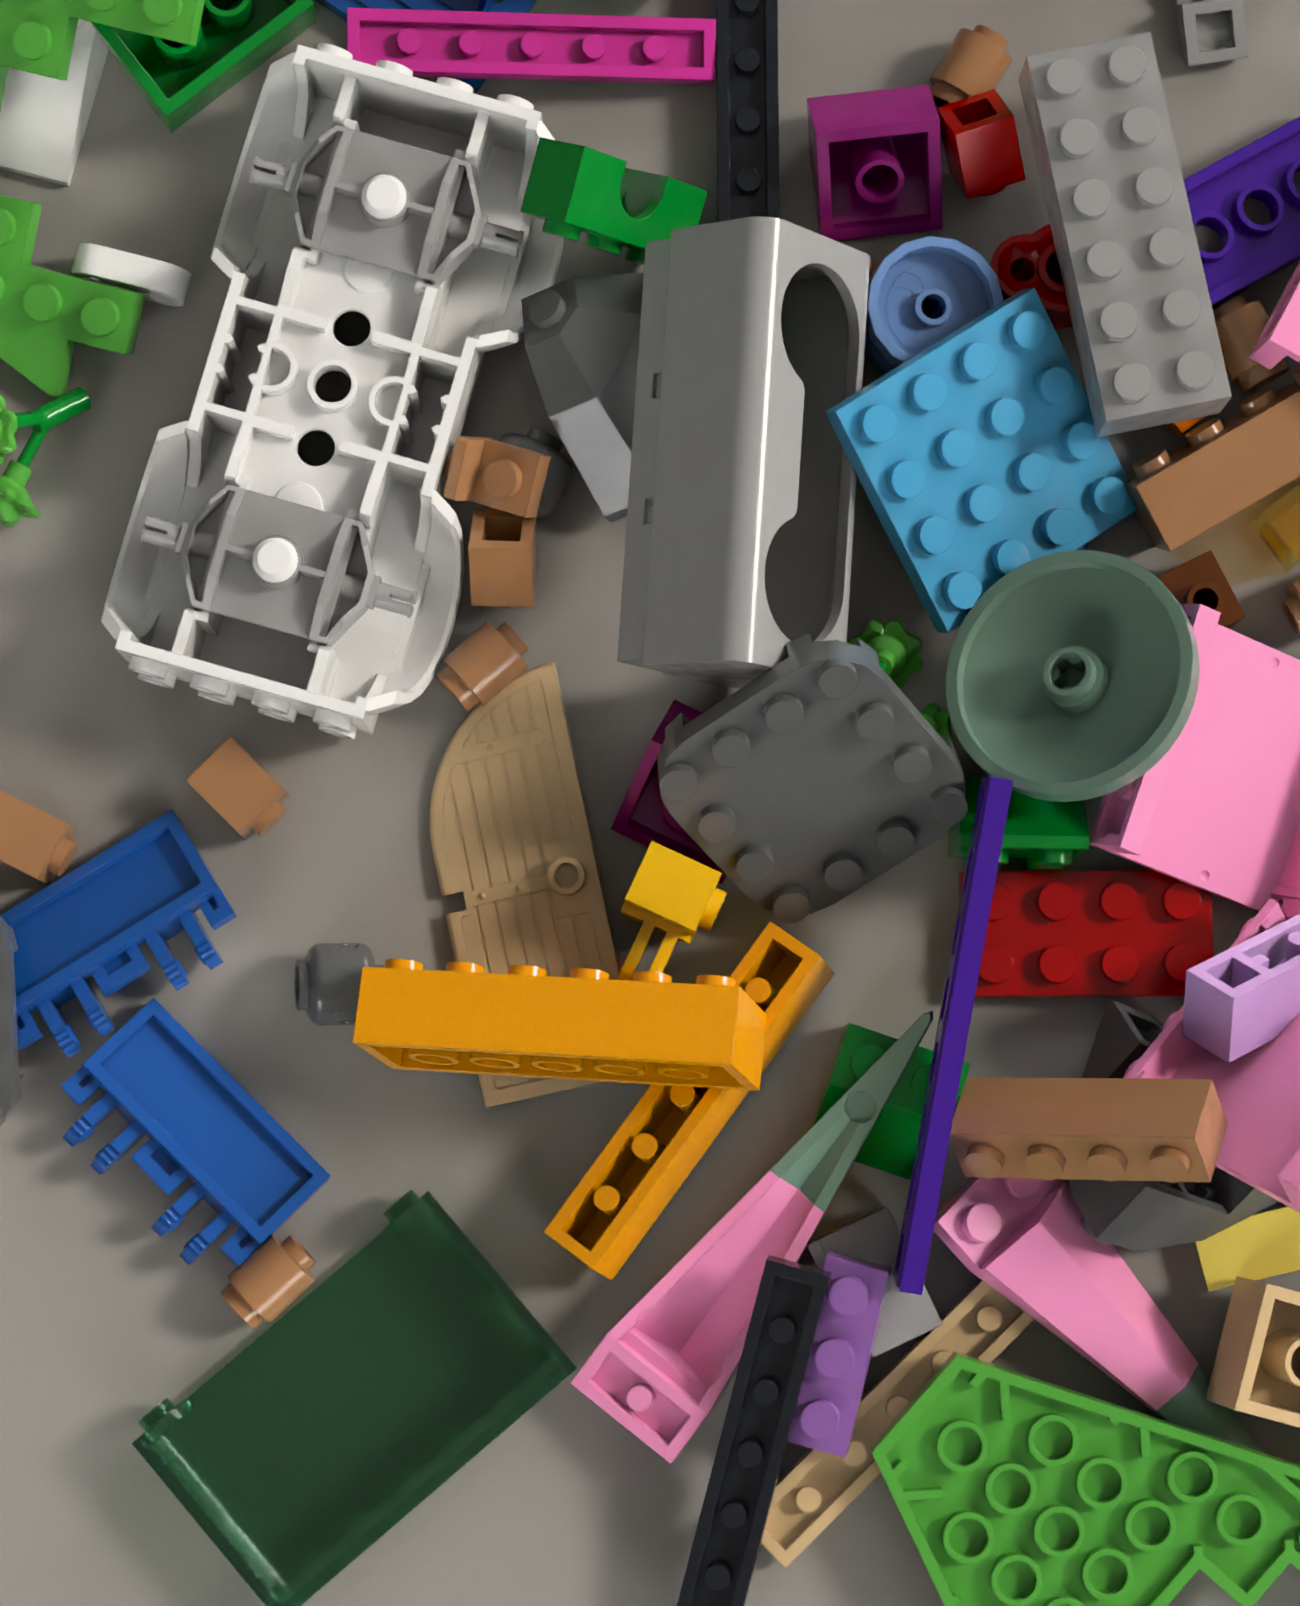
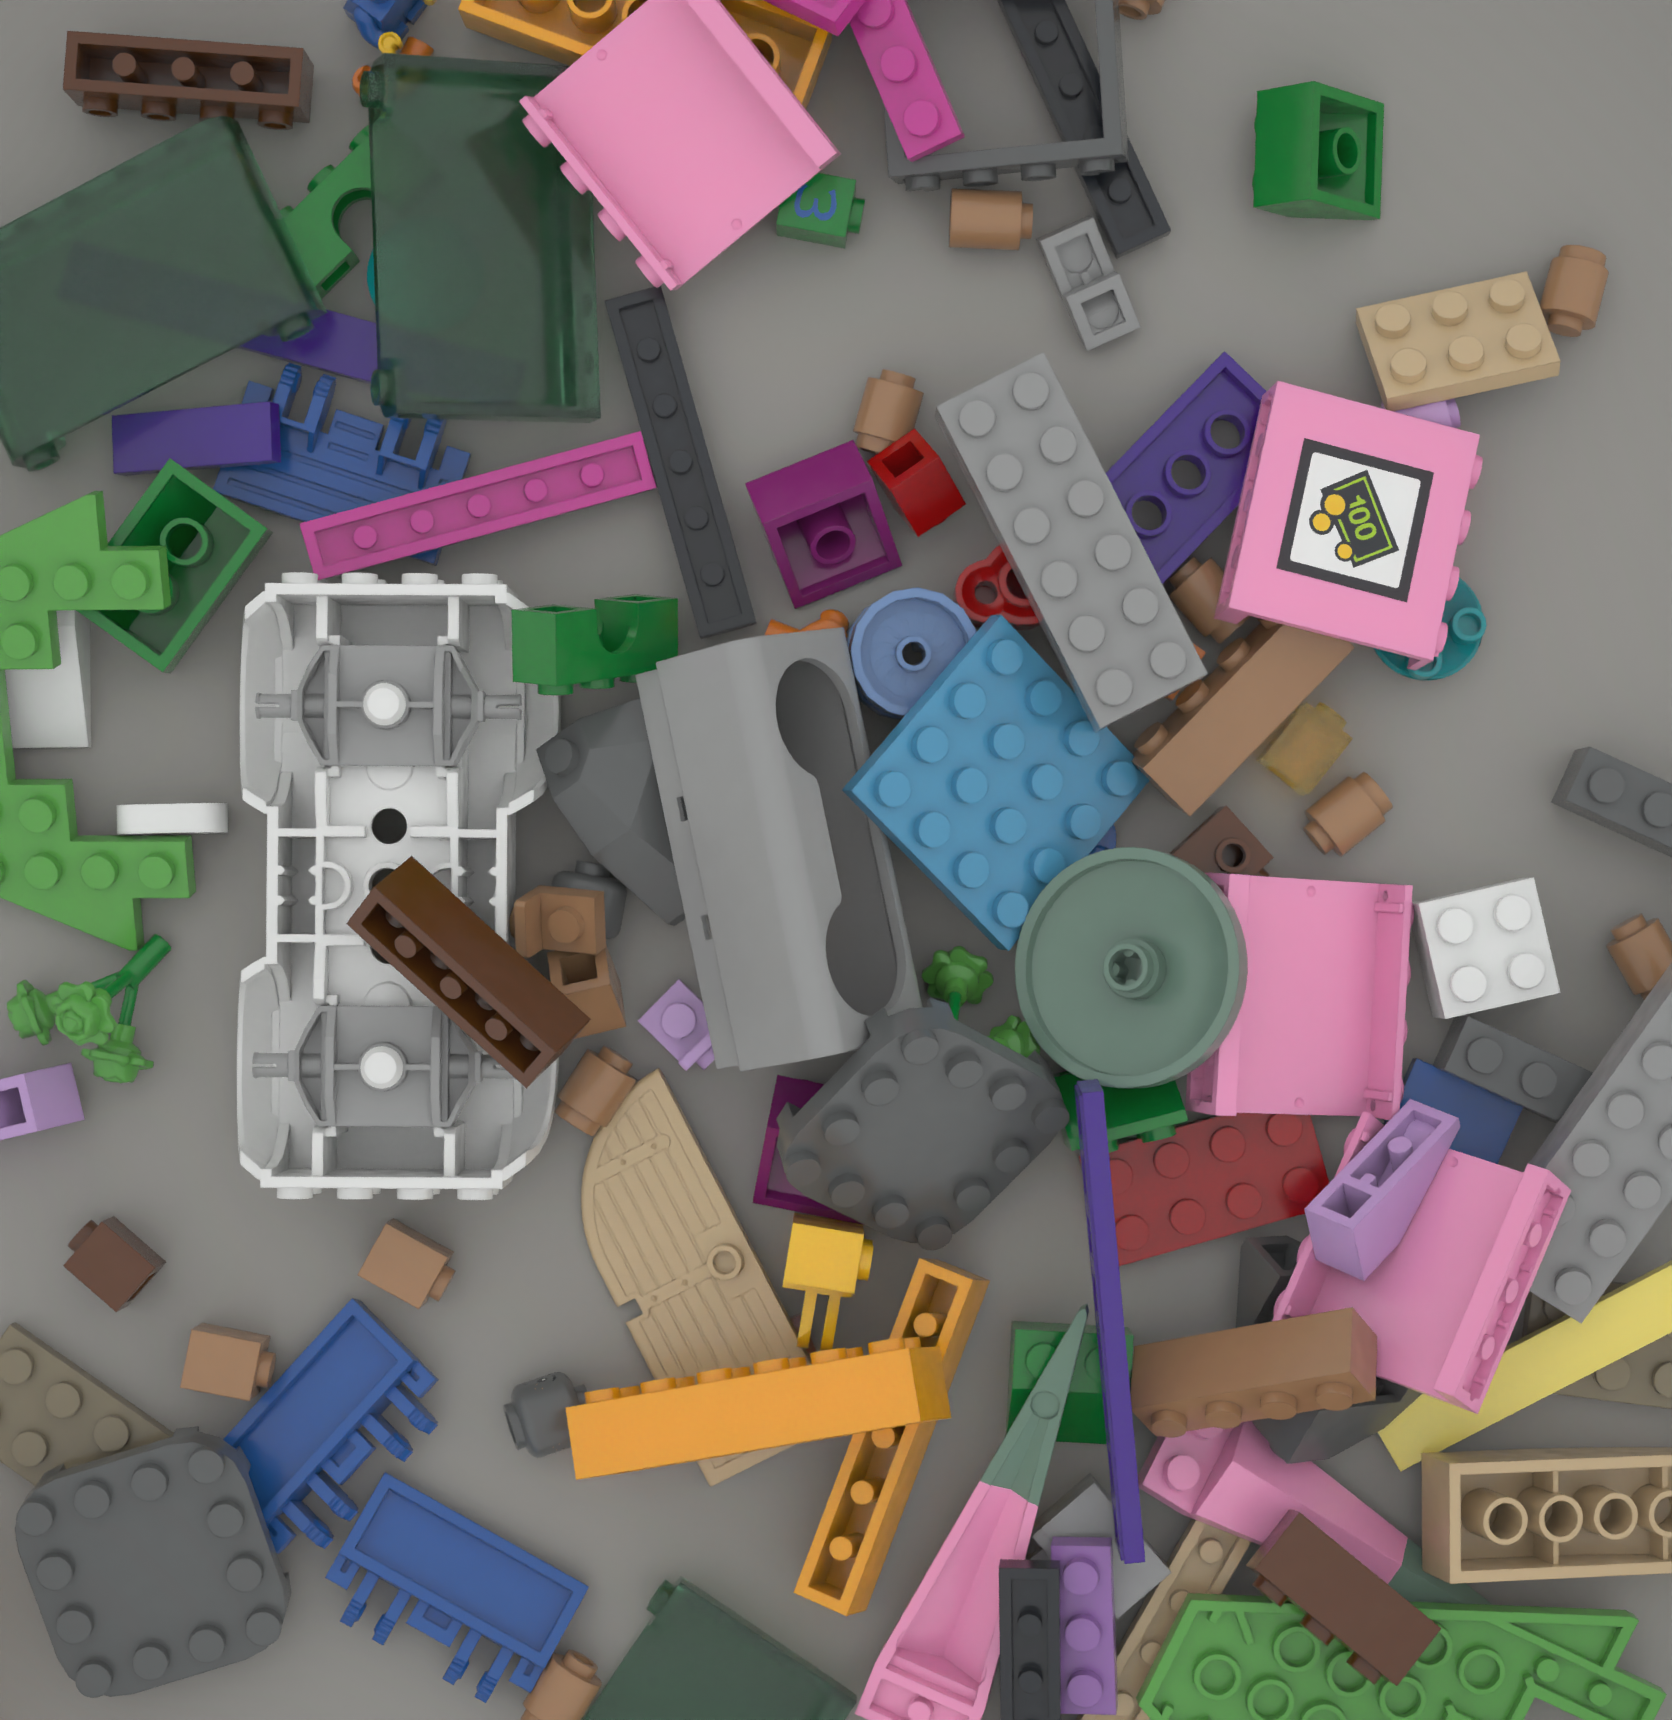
camera: 15 degrees left, 5 degrees up
(392, 482) = (468, 971): none -> reddish brown brick
(589, 627) = (681, 1026): none -> lavender bracket
(1116, 1394) = (1341, 1599): none -> reddish brown brick

